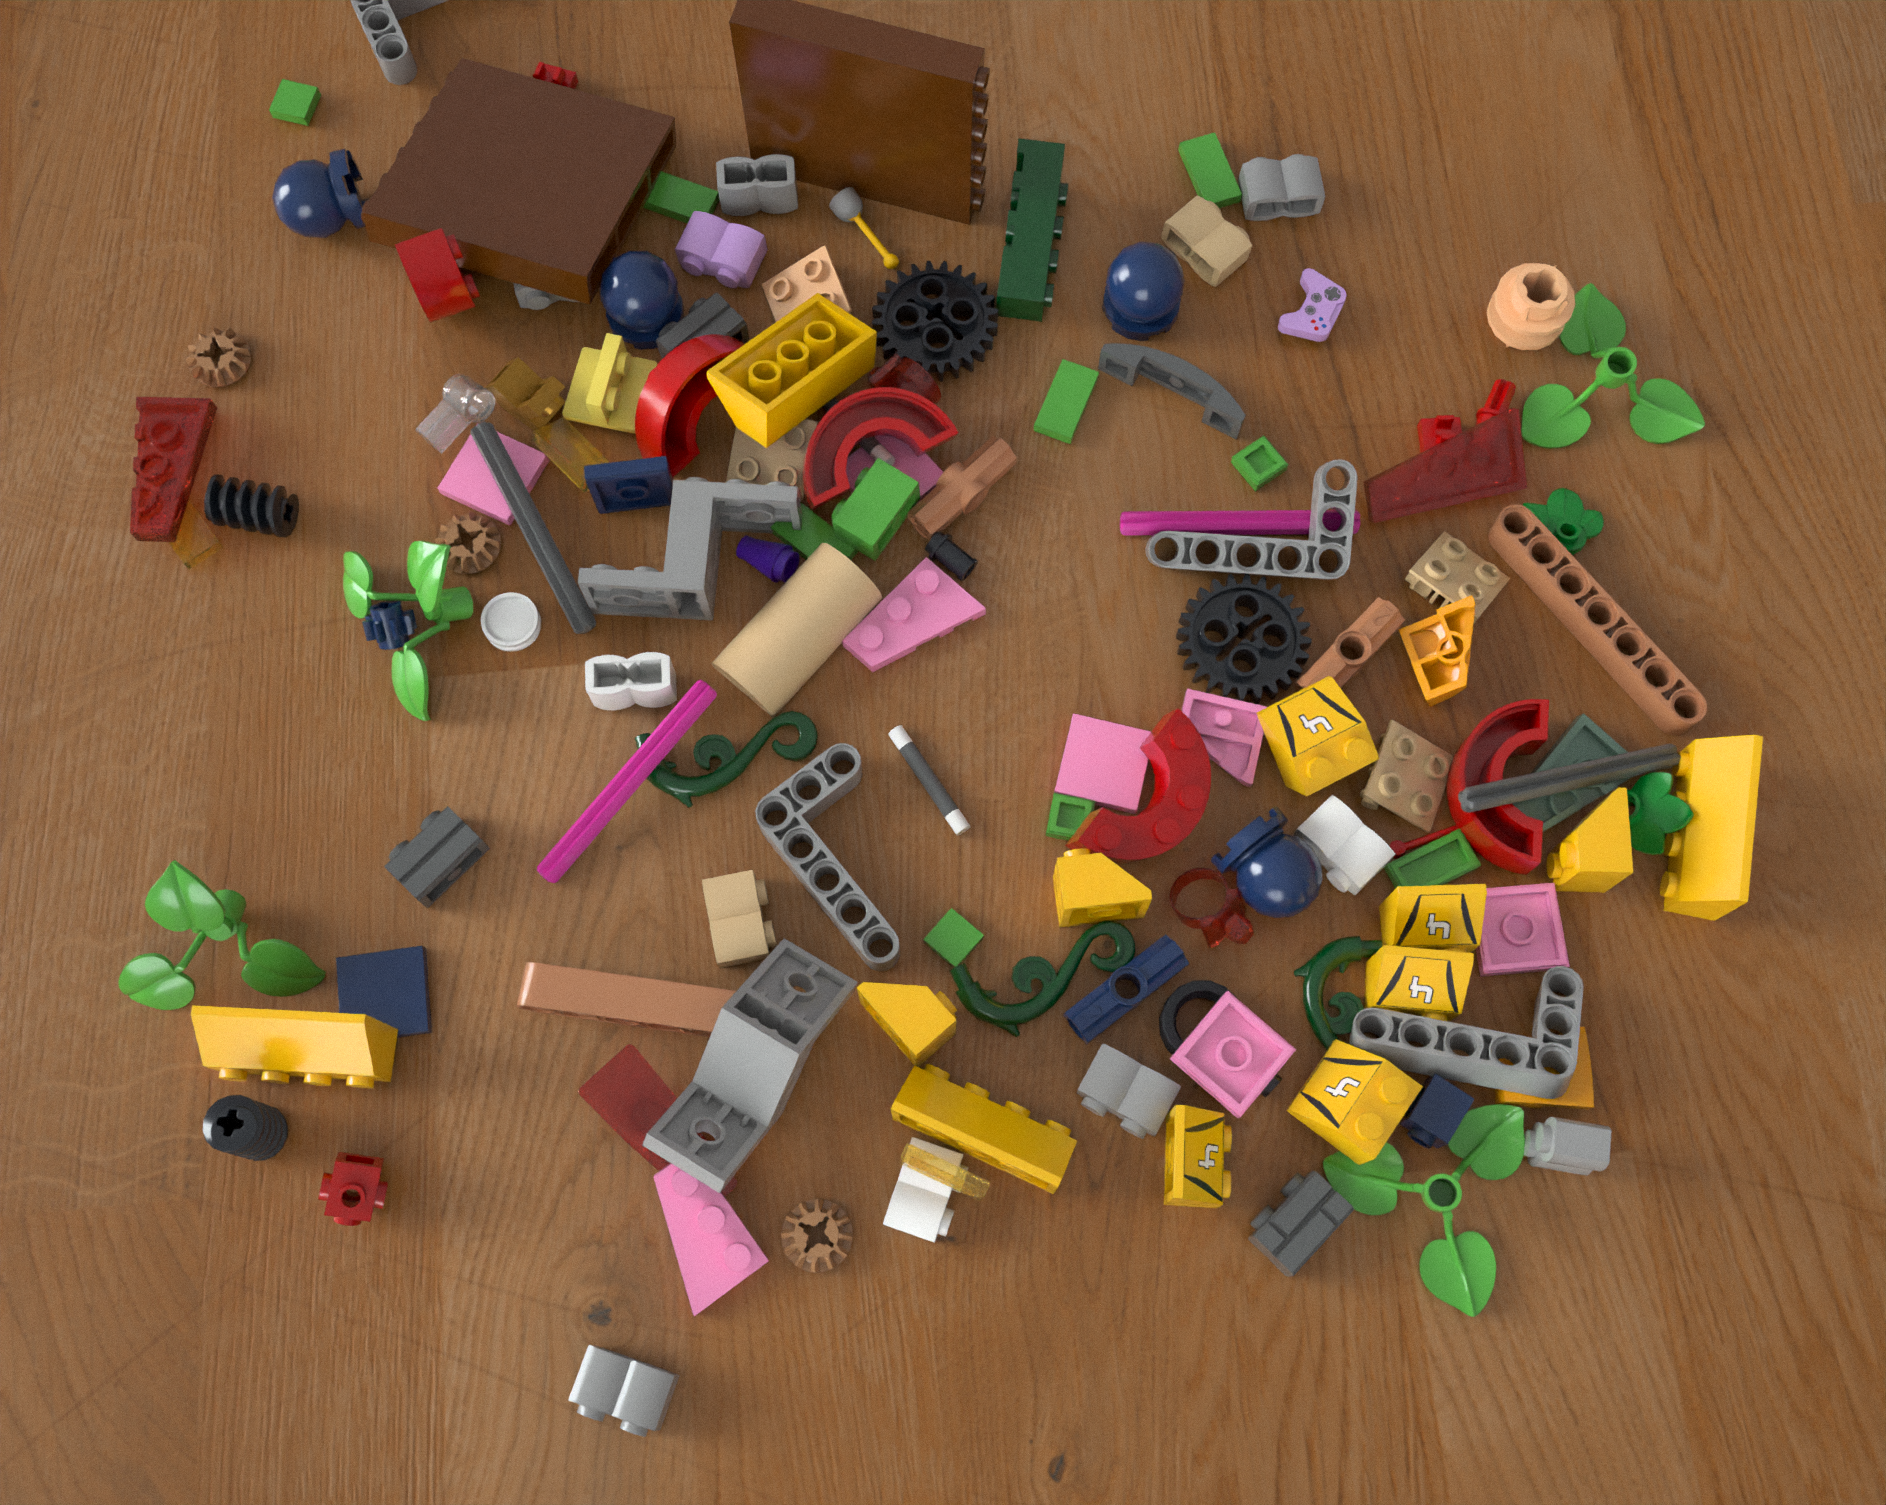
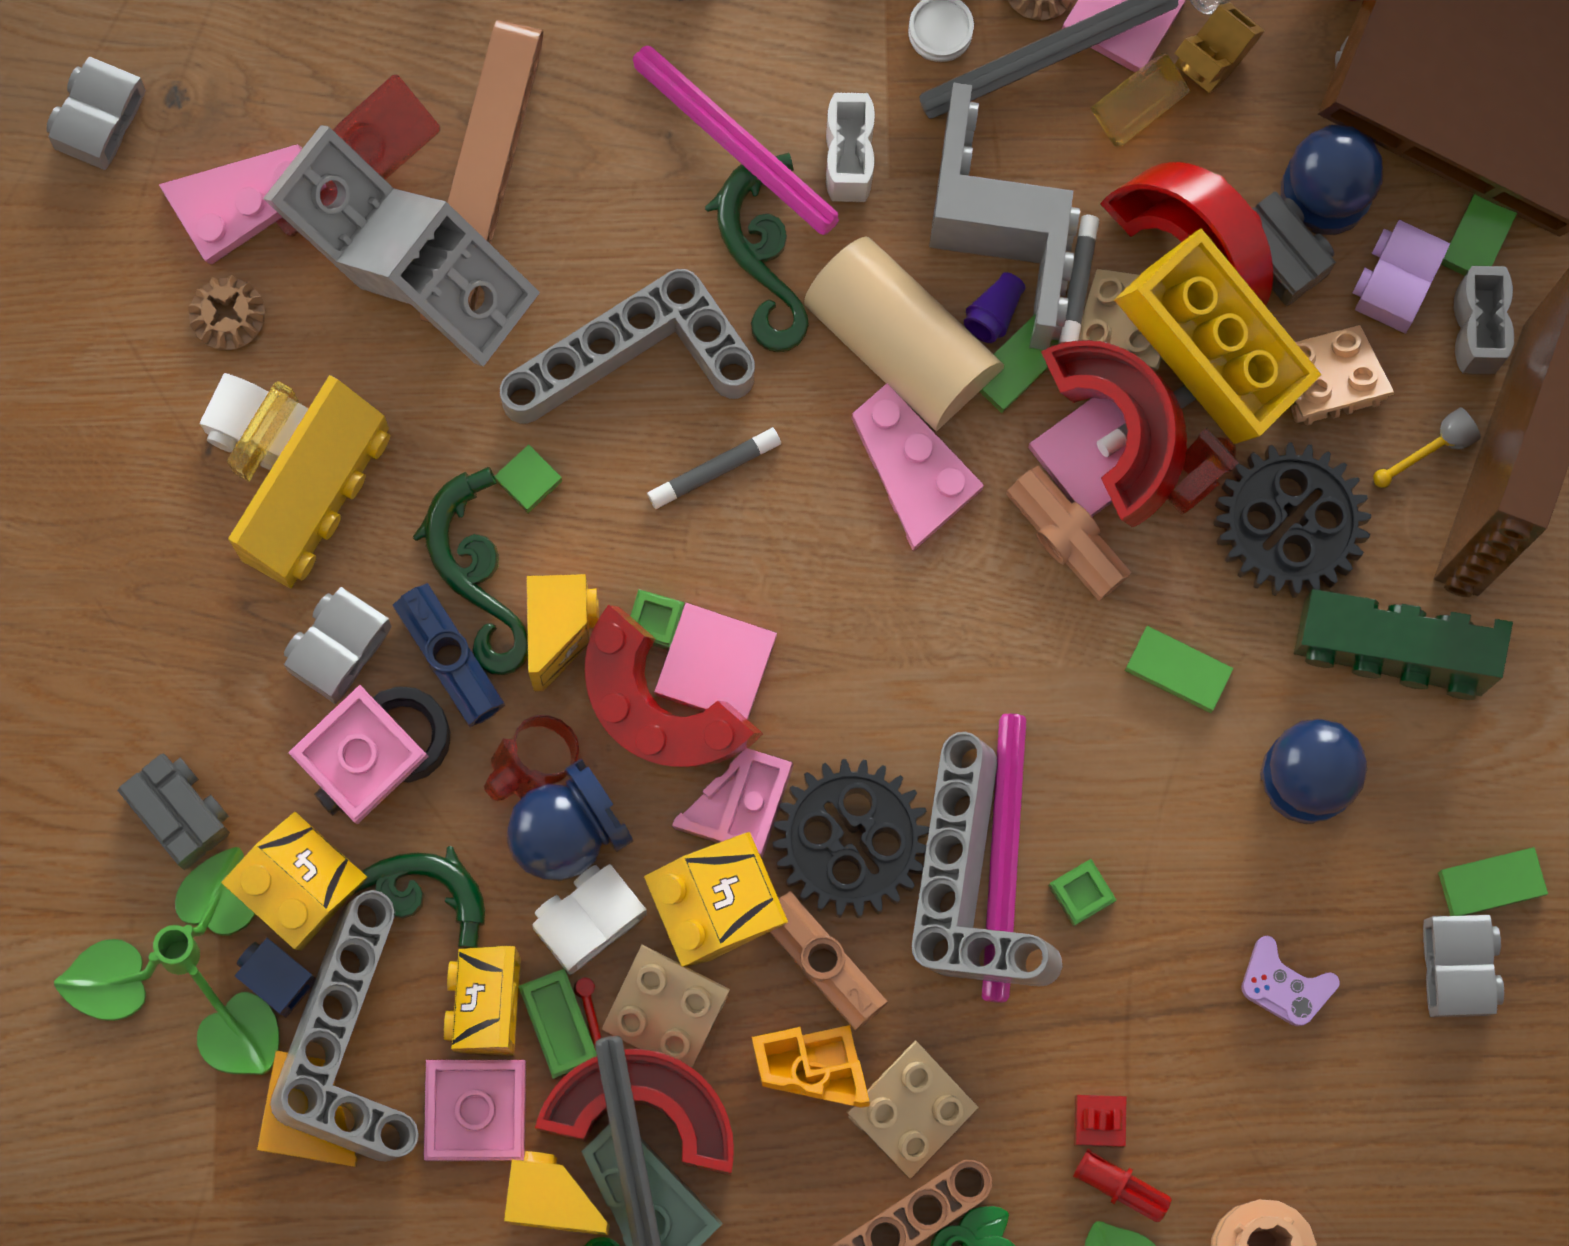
camera: 90 degrees right, 5 degrees up
(607, 386) = (1227, 139): light yellow bracket -> none
(630, 484) = (1086, 154): dark blue tile -> none
(737, 918) = (570, 249): tan brick -> none
(875, 508) = (1040, 425): bright green brick -> none
(910, 1017) = (435, 414): yellow slope -> none
(950, 555) = (984, 513): black pin -> none
(1130, 360) = (1220, 751): dark grey slope -> none
(1196, 1157) = (252, 703): yellow slope -> none
(1206, 240) = (1388, 862): tan brick -> none
(1418, 981) = (414, 971): yellow slope -> none
(1459, 470) = (1048, 1128): clear red wing -> none
(1568, 1146) = (216, 1106): light grey brick -> none

